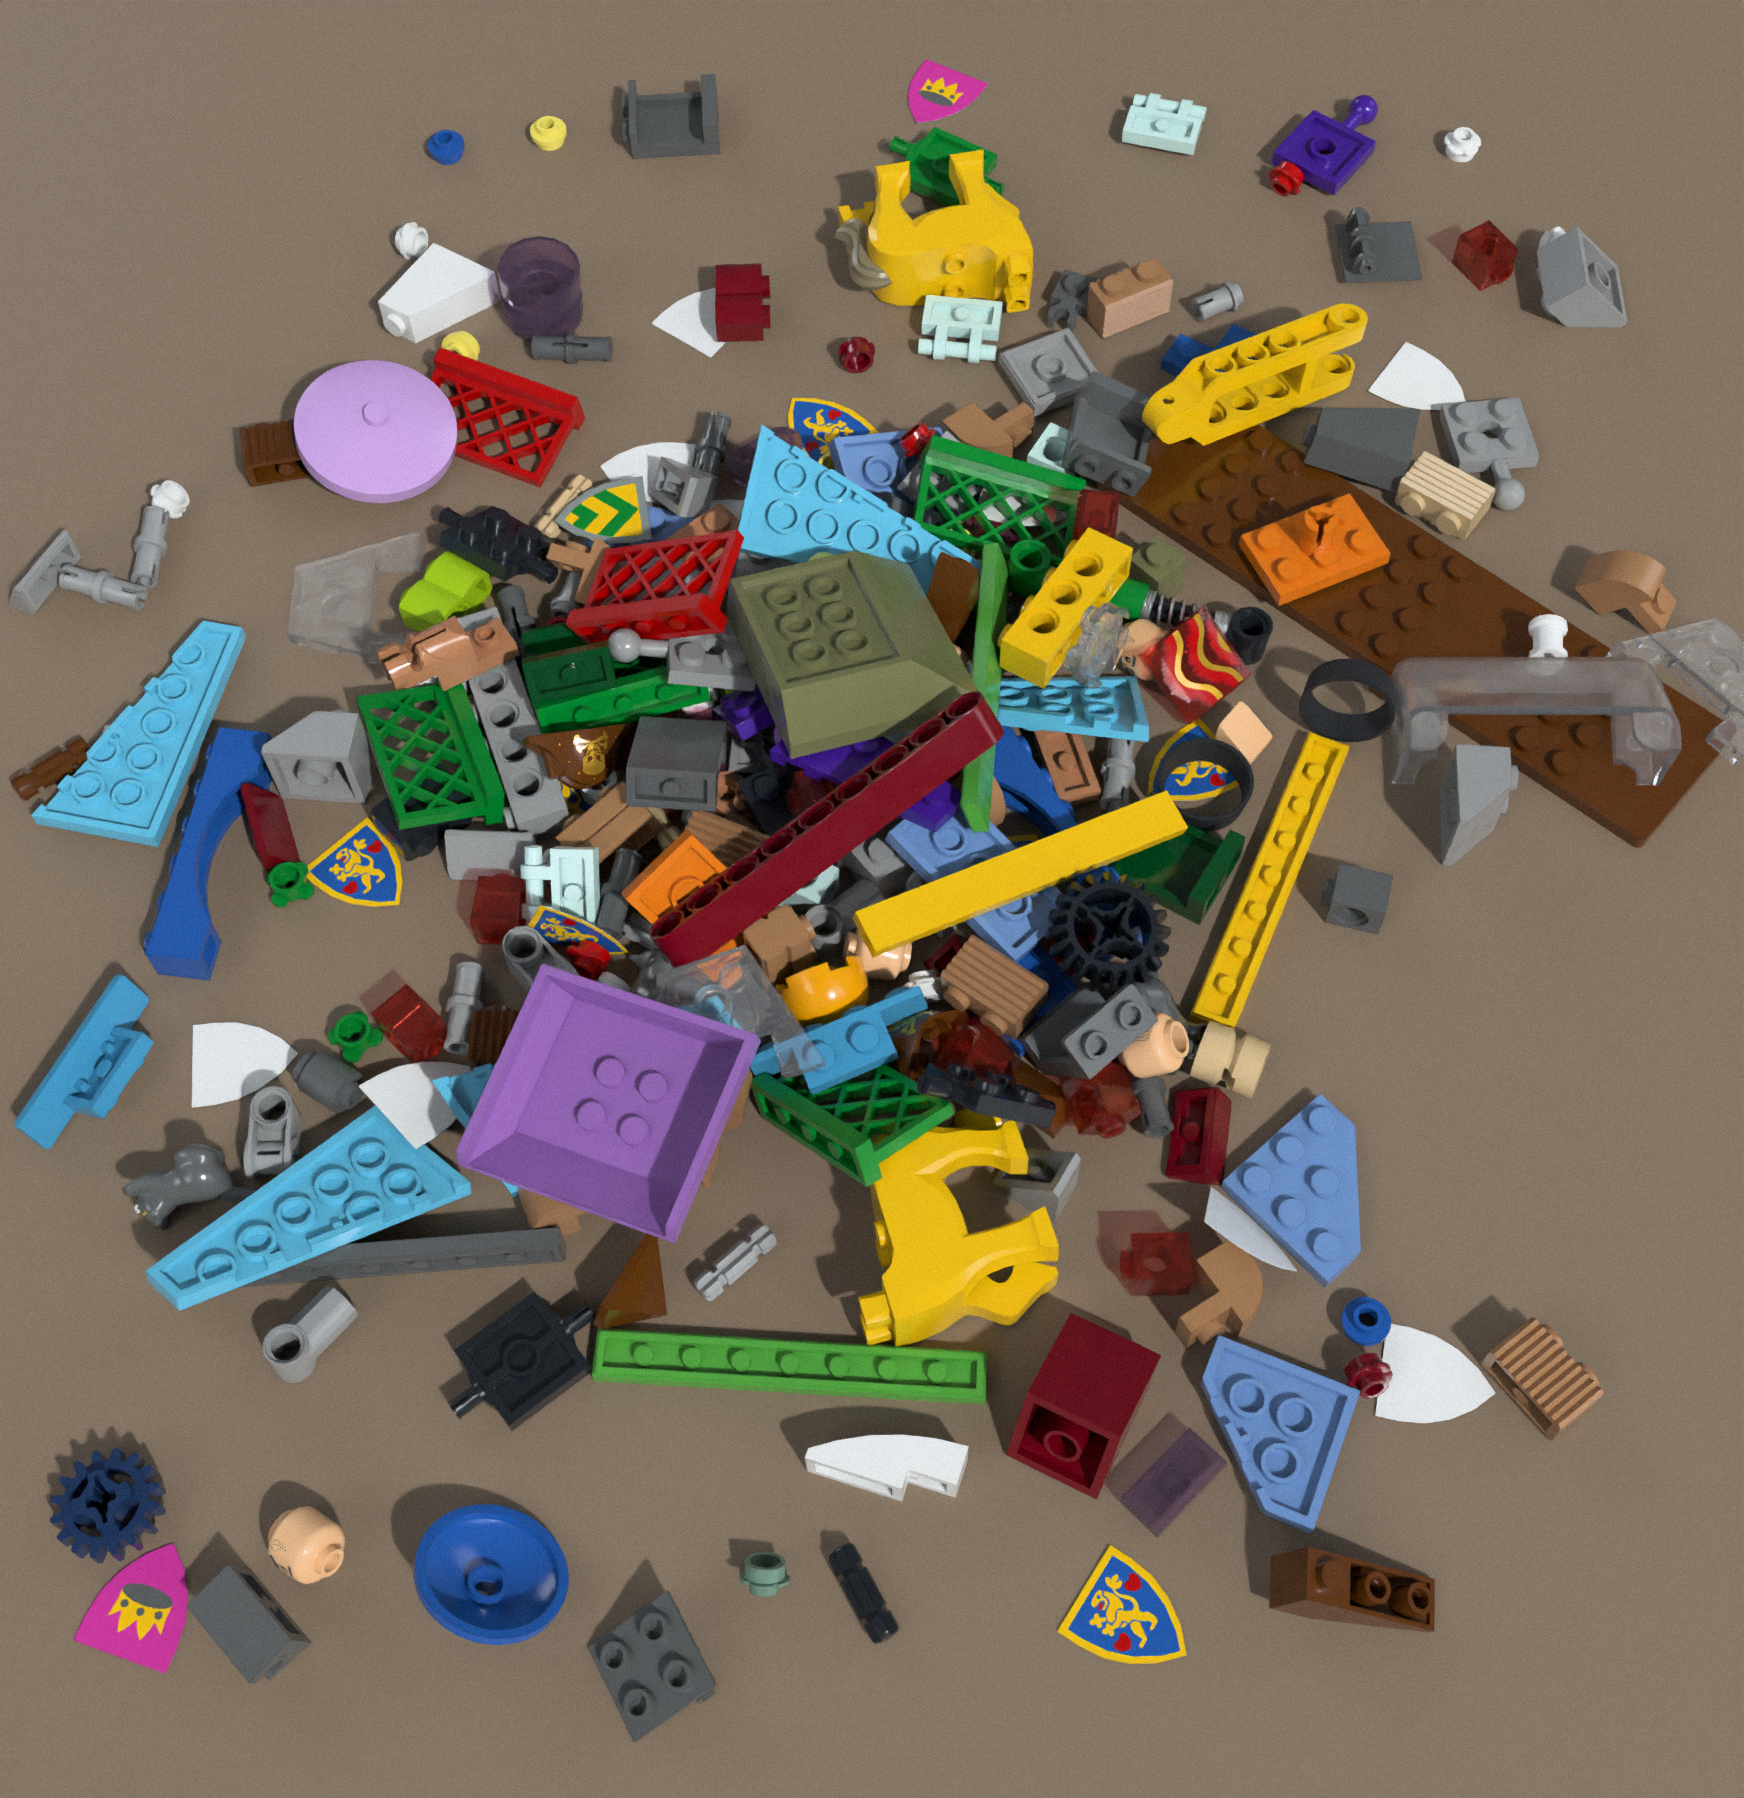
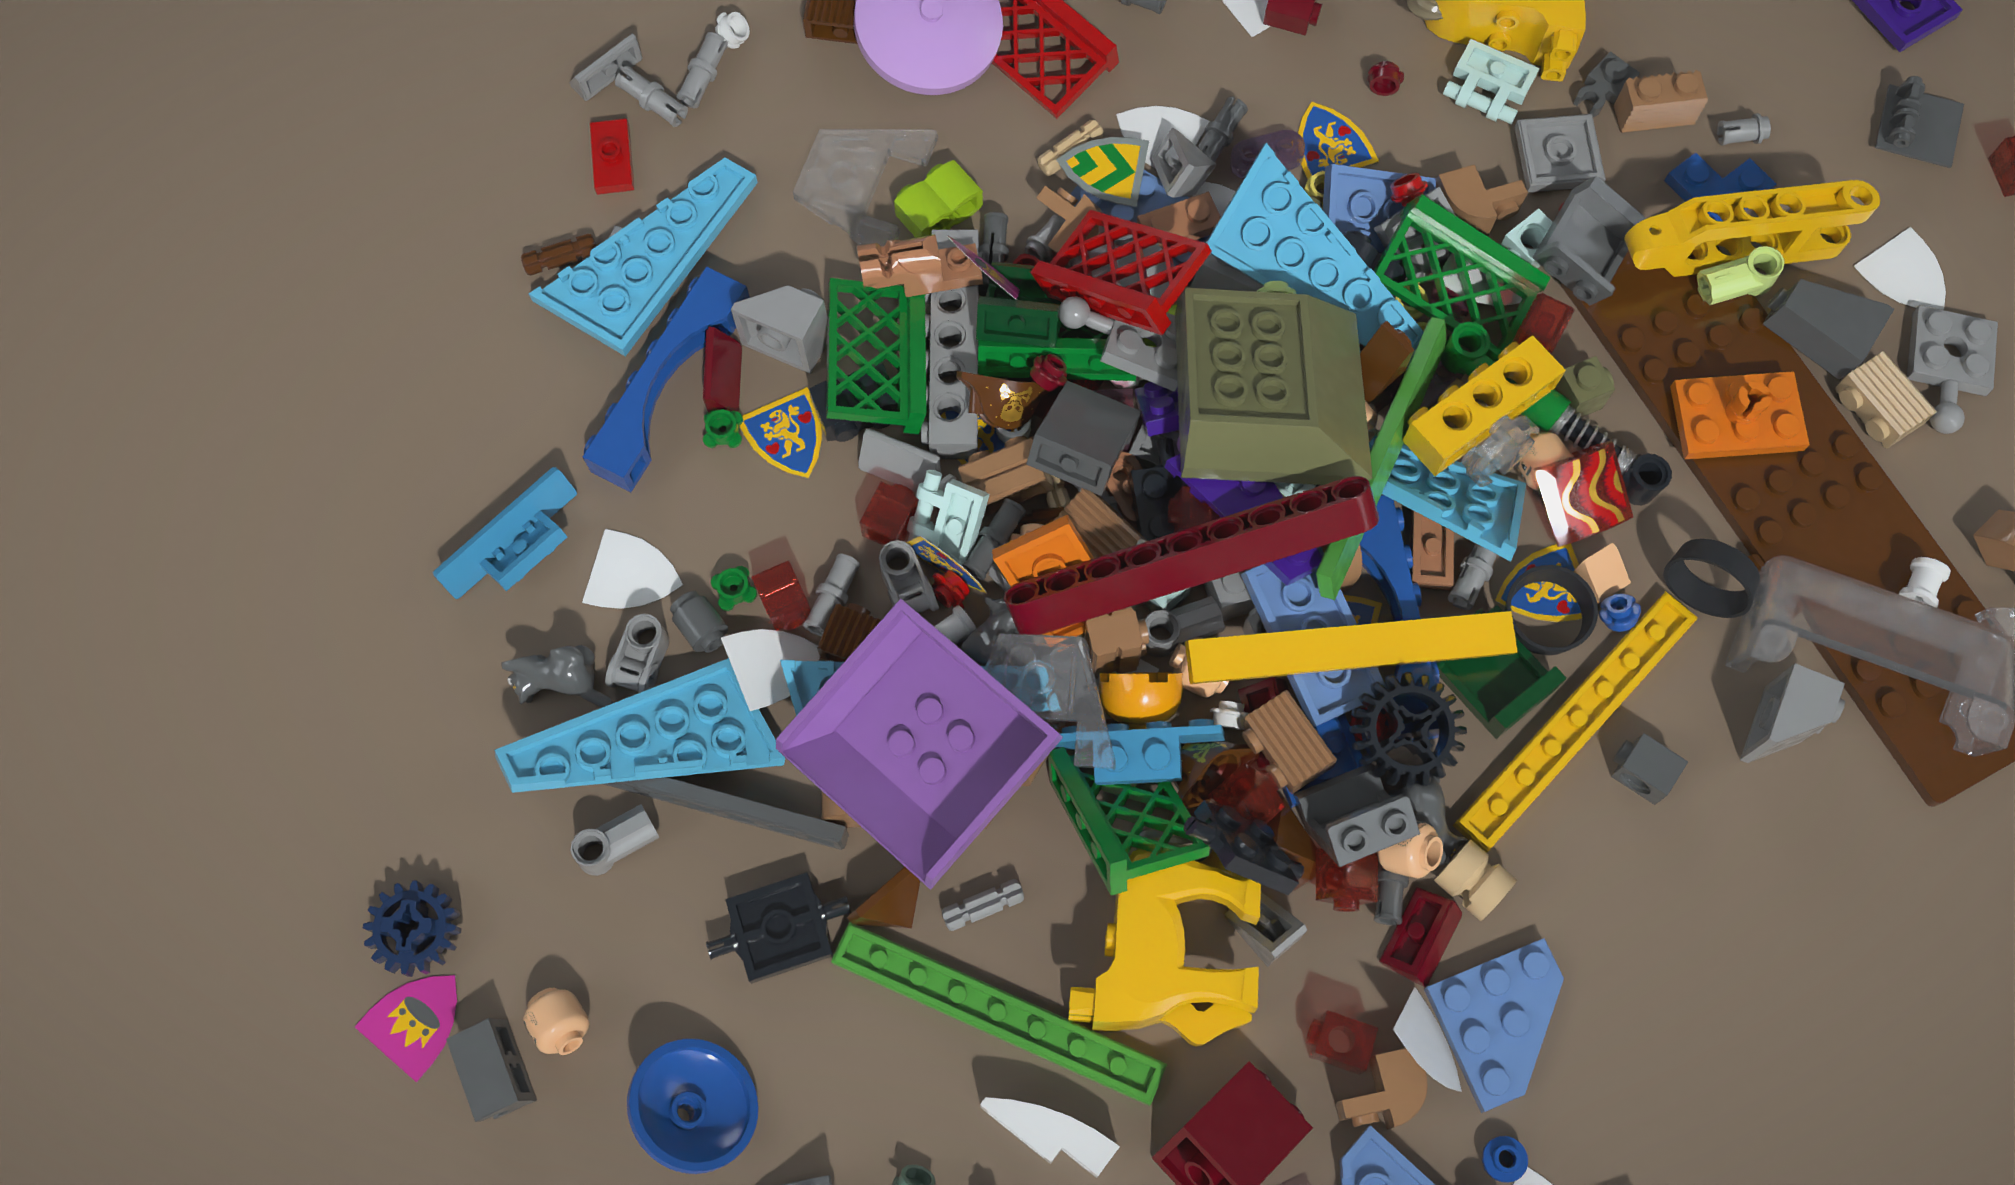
camera: 20 degrees right, 10 degrees up
(79, 658) = (611, 156): none -> red plate
(498, 543) = (1000, 166): black plate -> none
(520, 632) = (989, 270): none -> dark pink sticker
(618, 712) = (1049, 372): none -> dark red plate
(1271, 422) = (1740, 276): none -> yellowish green piece
(1273, 764) = (1618, 619): none -> blue plate
(1286, 178) = (1859, 22): red plate -> none

